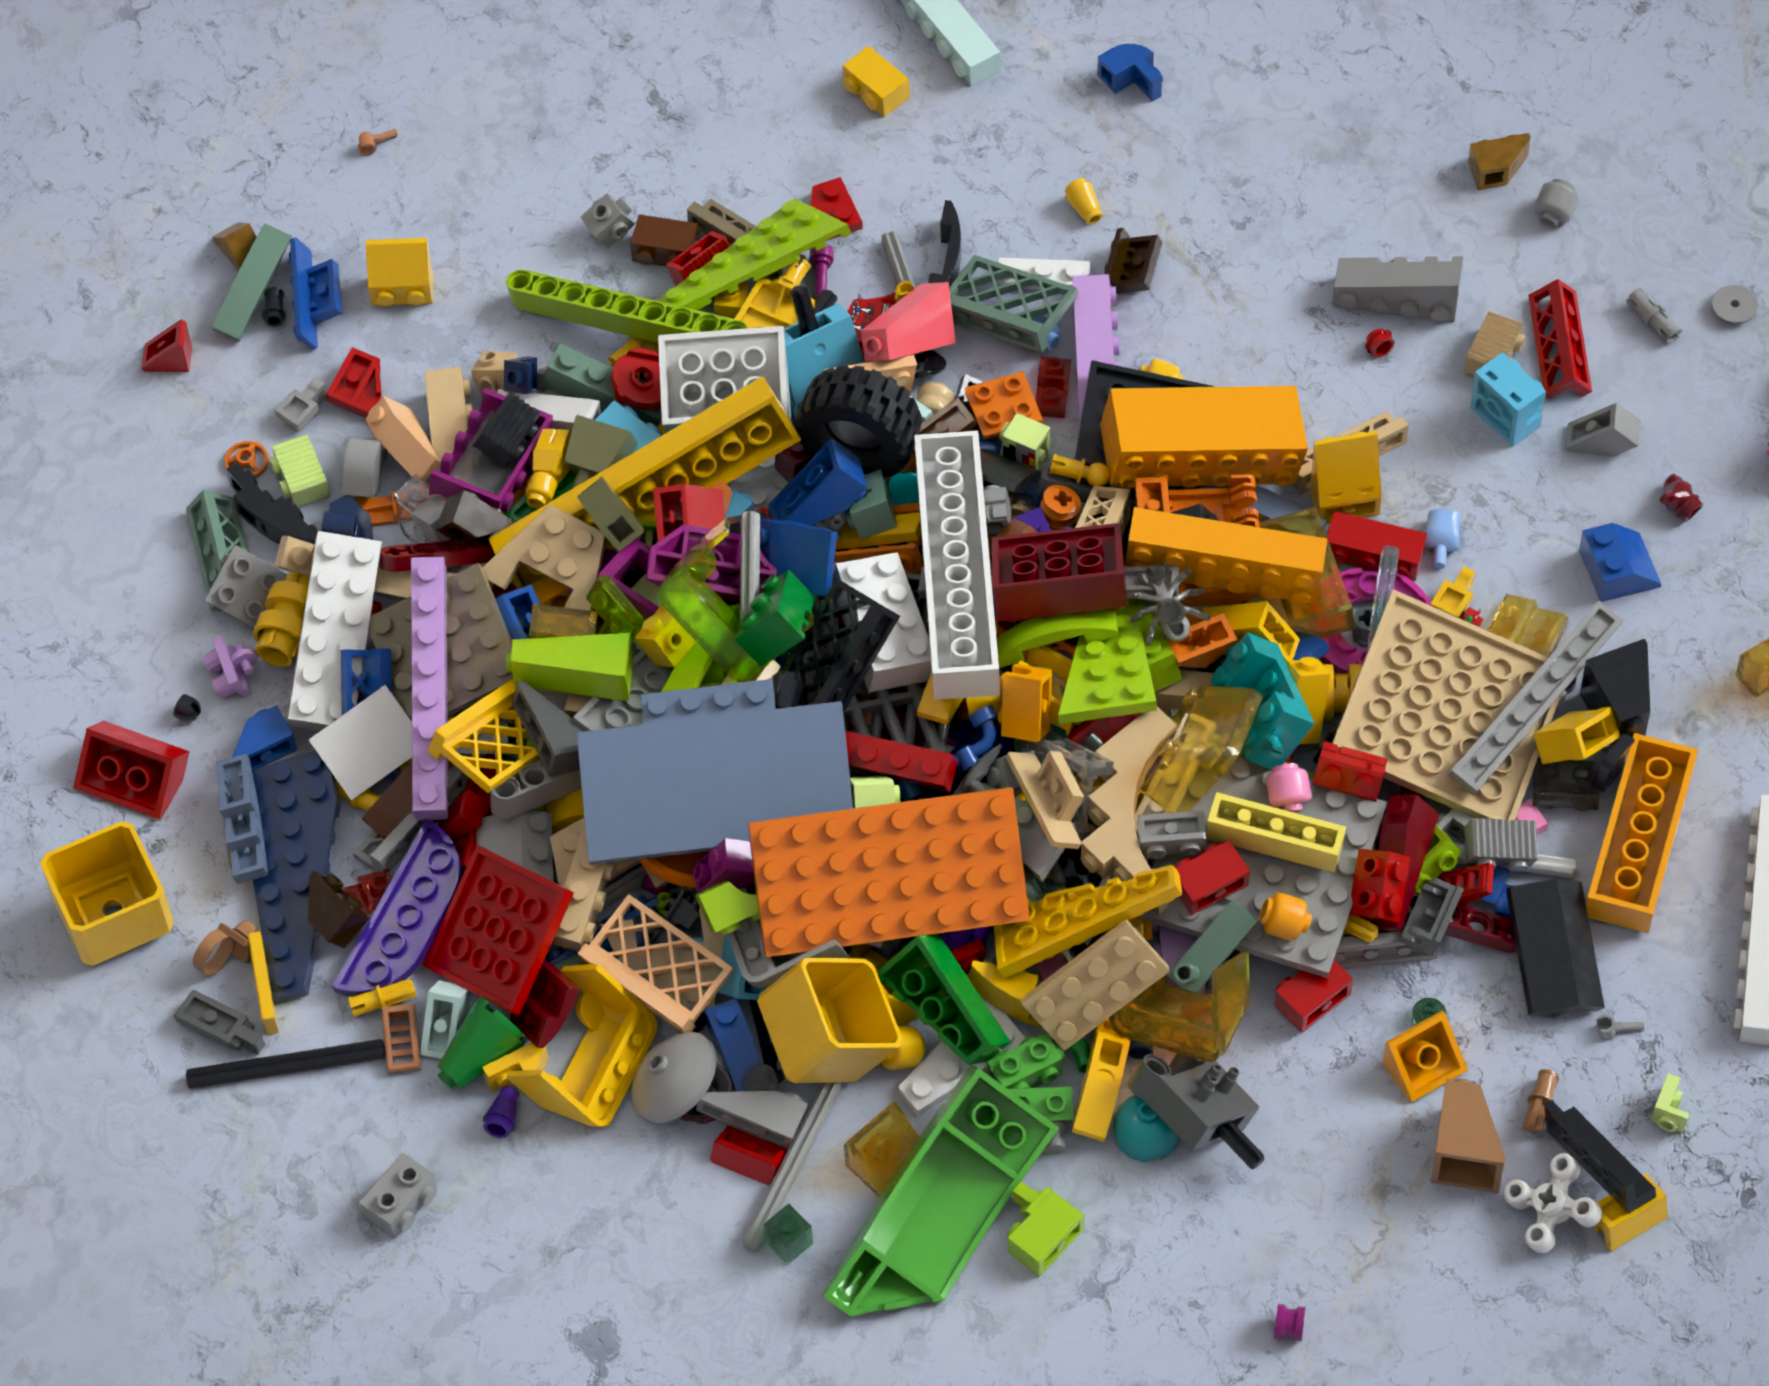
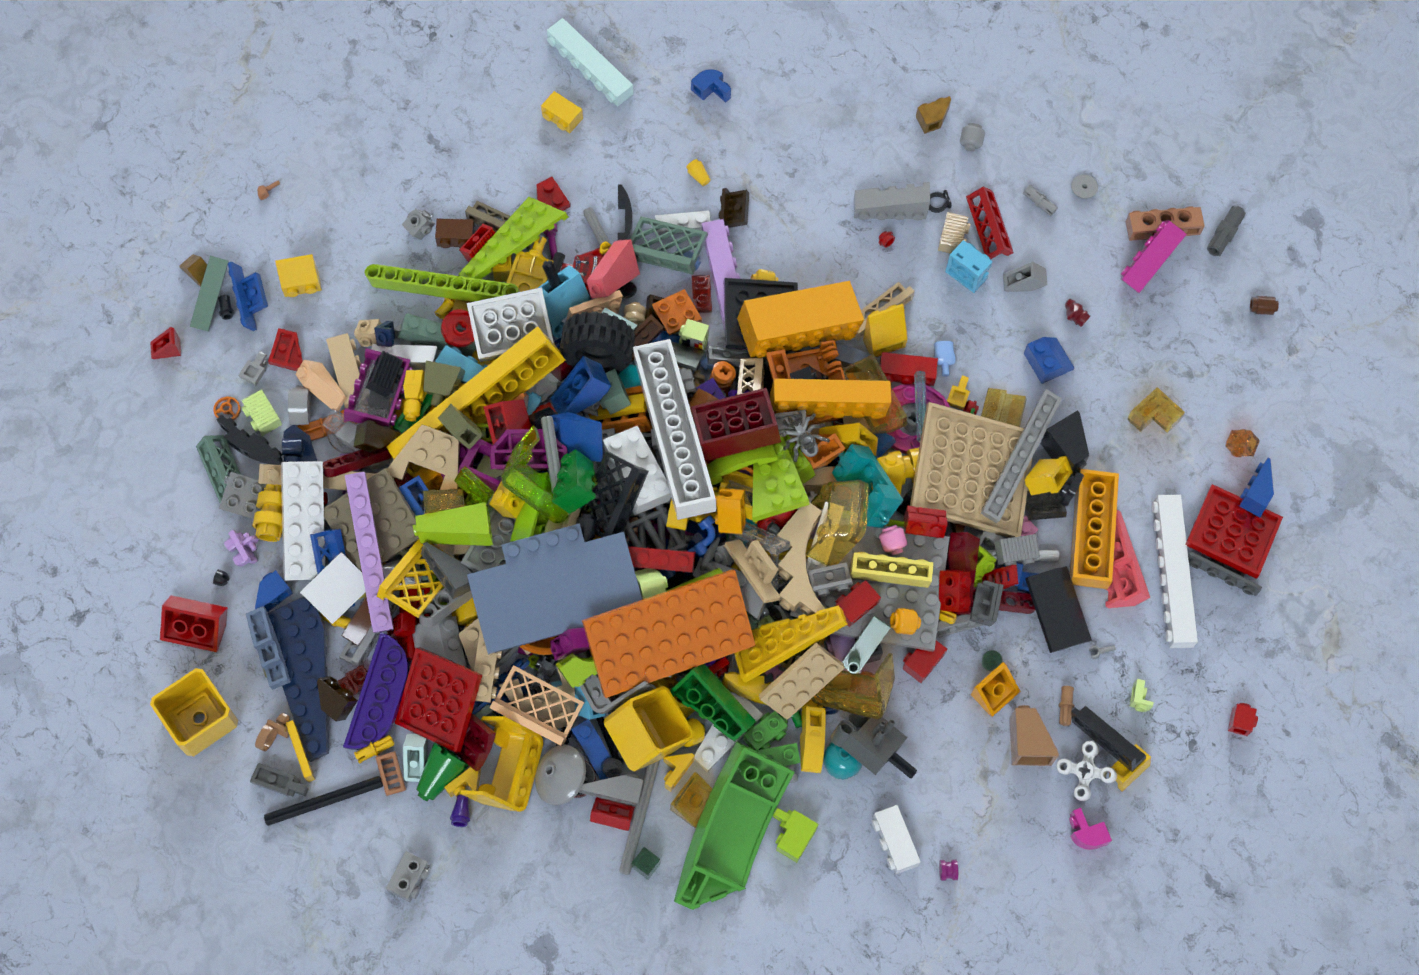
camera: 15 degrees left, 10 degrees up
(873, 1096) = (680, 764): none -> yellow slope
(1095, 474) = (740, 350): yellow pin -> none
(1209, 1263) = (895, 840): none -> white brick
(1491, 288) = (947, 204): none -> black piece
(1538, 1308) = (1085, 836): none -> dark pink brick
(1684, 921) = (1128, 583): none -> coral wedge

